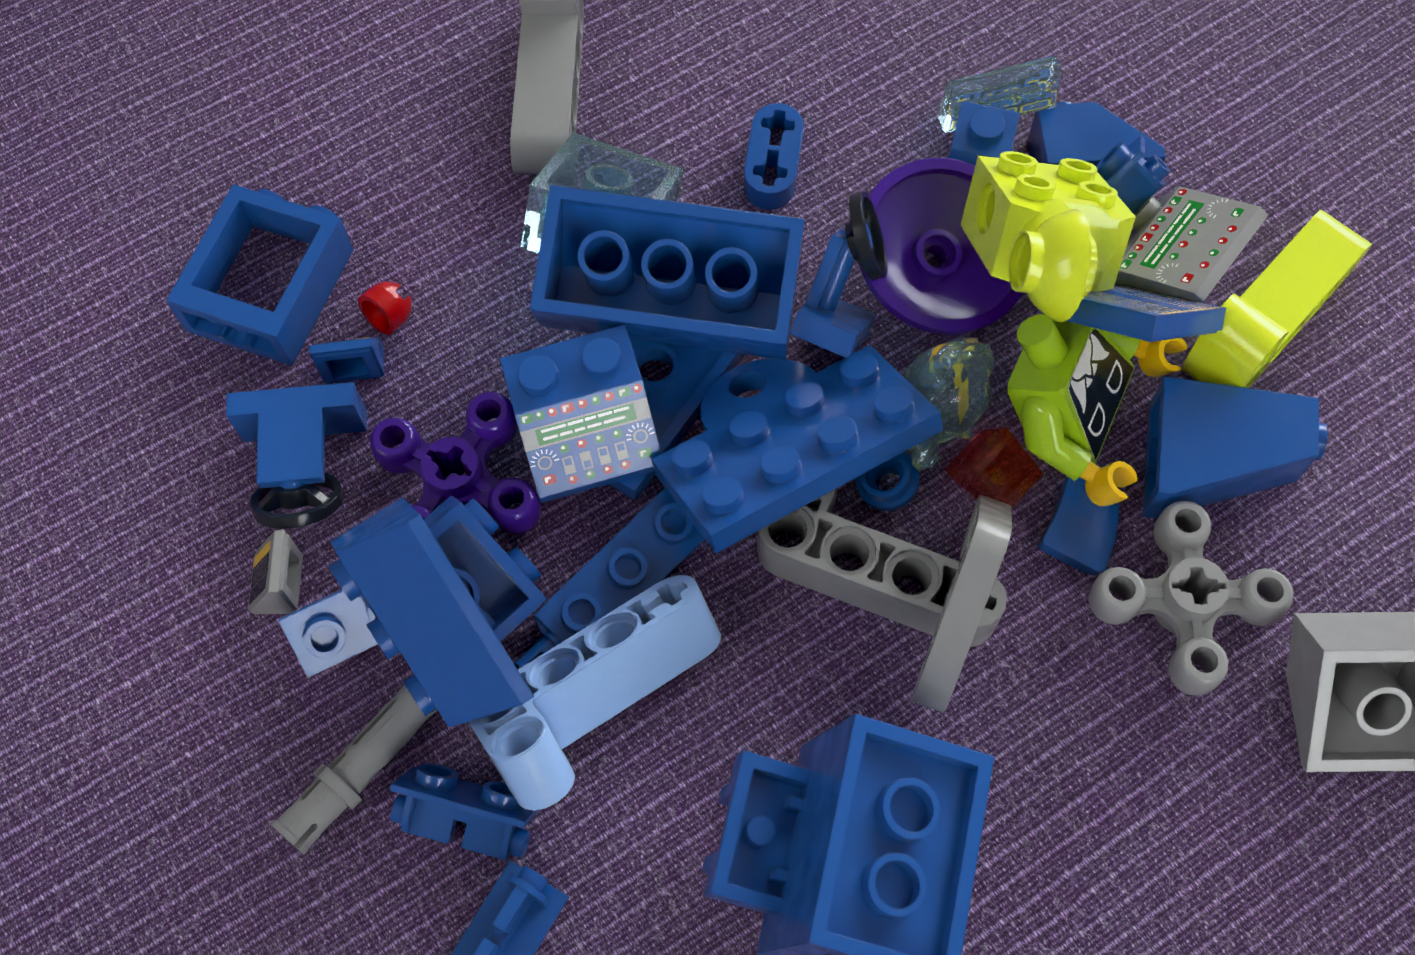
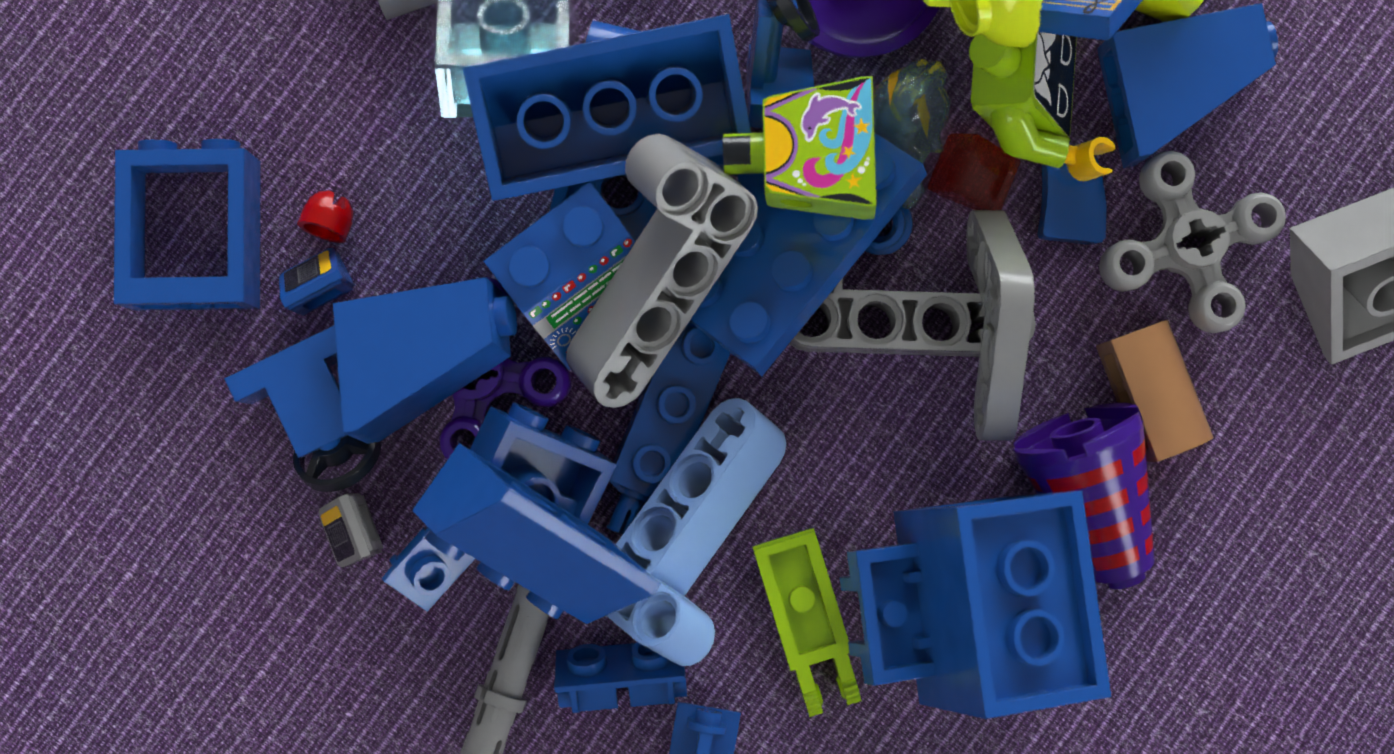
camera: 25 degrees left, 20 degrees up
(404, 421) = (416, 350): none -> blue slope
(644, 418) = (667, 270): none -> light grey beam
(674, 819) = (806, 613): none -> lime hinge
(839, 356) = (813, 150): none -> torso
(1026, 802) = (1109, 465): none -> dark purple cone
(1110, 727) = (1151, 373): none -> medium nougat brick

